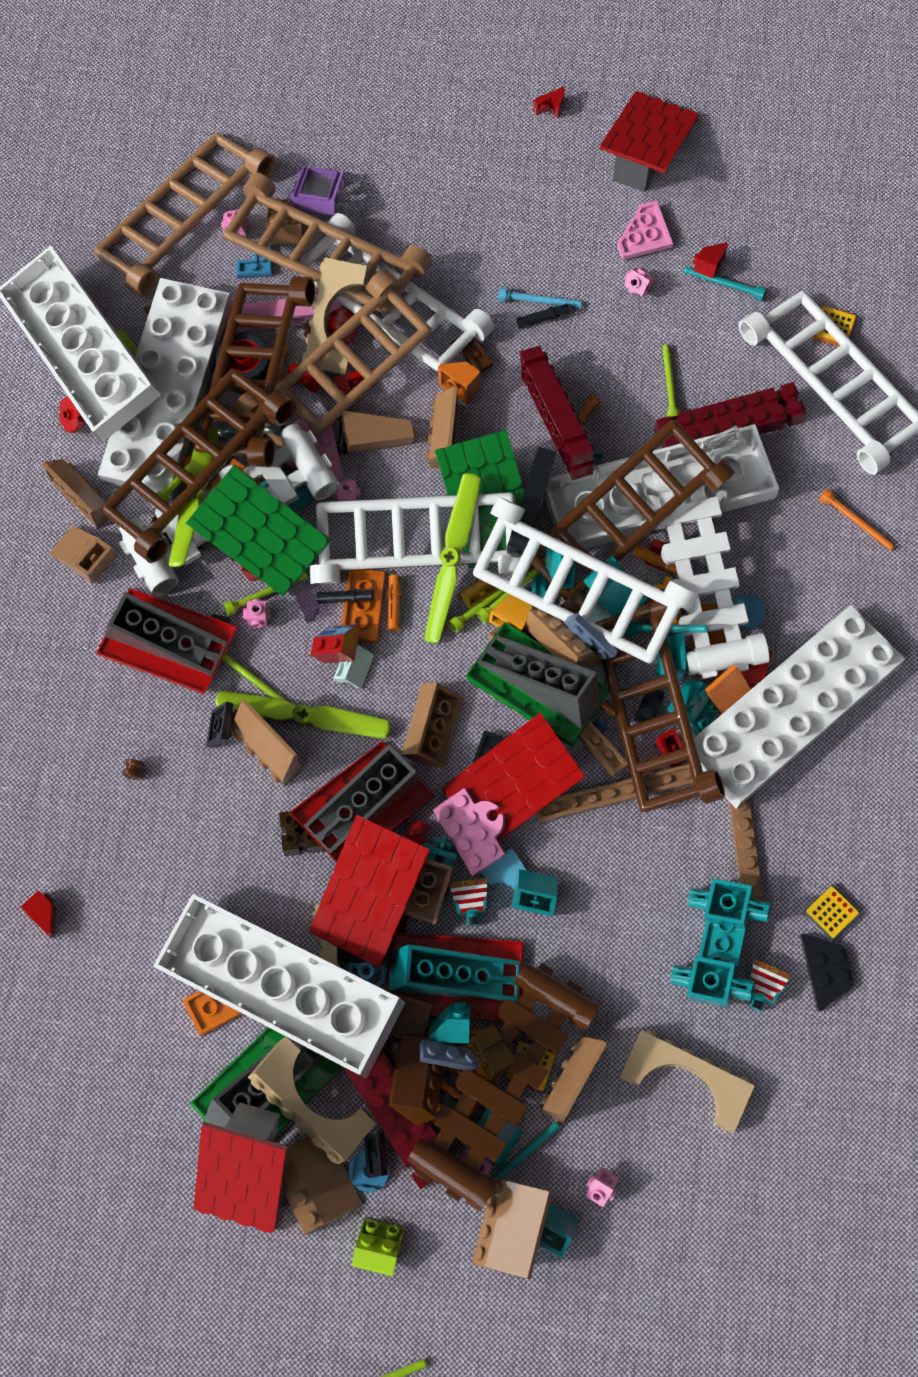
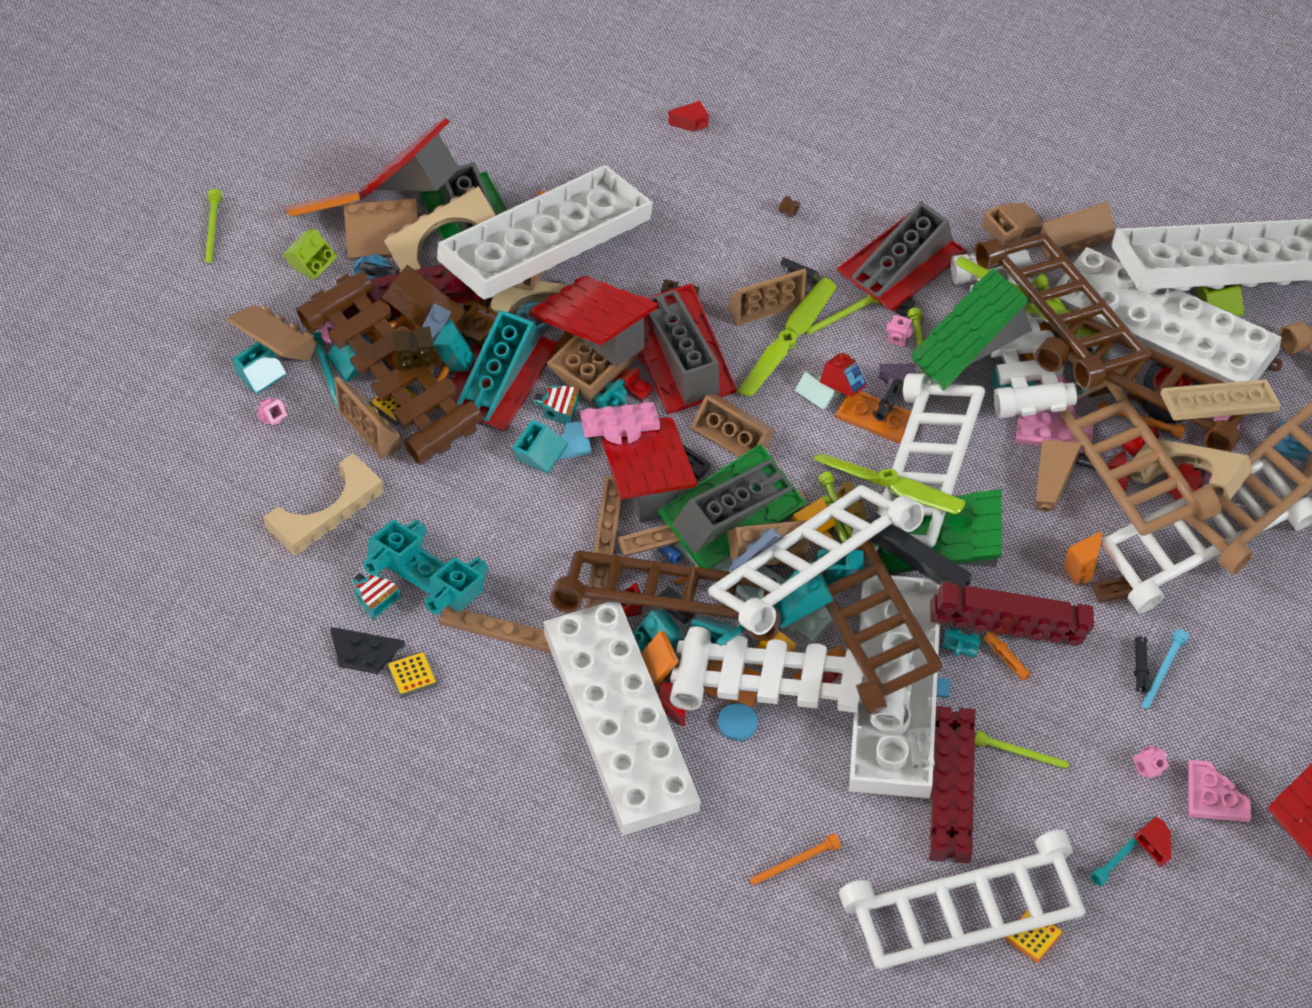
camera: 110 degrees right, 15 degrees down
(263, 300) = (1220, 399): none -> tan plate
(306, 1263) = (322, 203): none -> orange tile
(347, 491) = (996, 432): bright pink brick -> none
(394, 595) = (876, 441): orange pin -> none
(443, 423) = (1036, 532): medium nougat slope -> none

